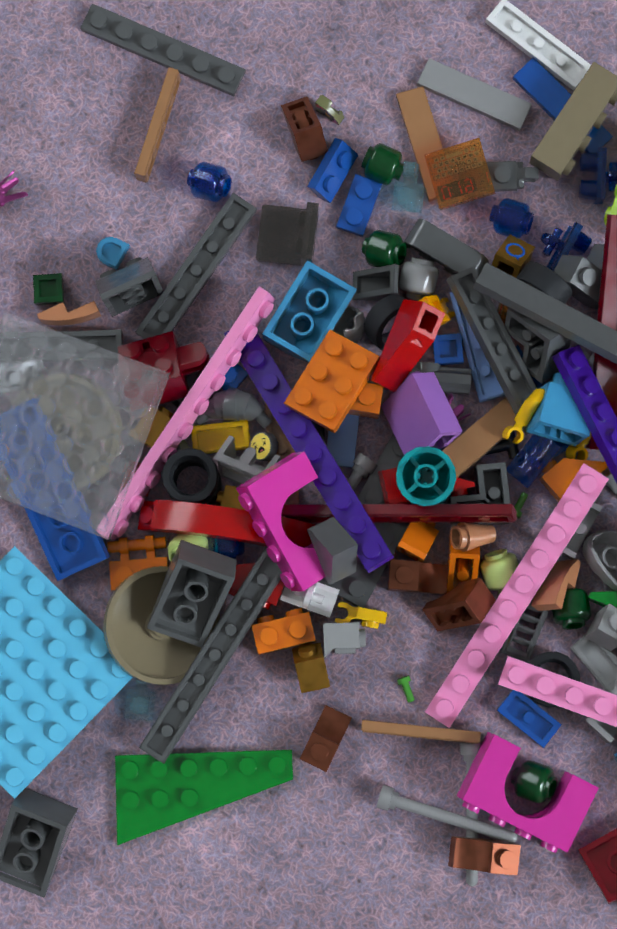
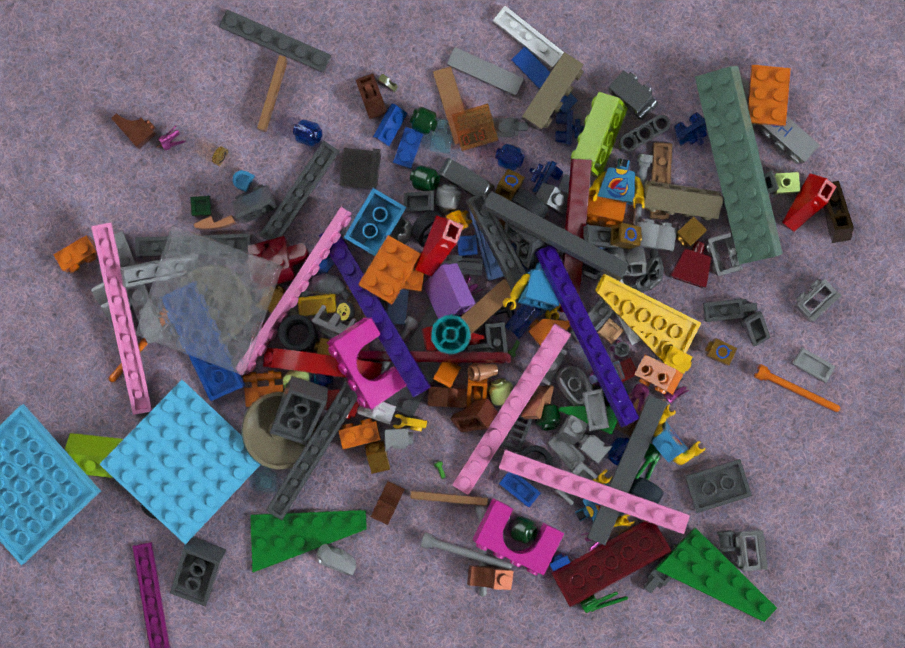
camera: 10 degrees left, 5 degrees up
(77, 215) = (219, 155): none -> clear yellow tile
(246, 826) = (336, 559): none -> light grey piece
(334, 549) = (391, 381): dark grey slope -> none
(590, 831) = (559, 560): none -> blue plate

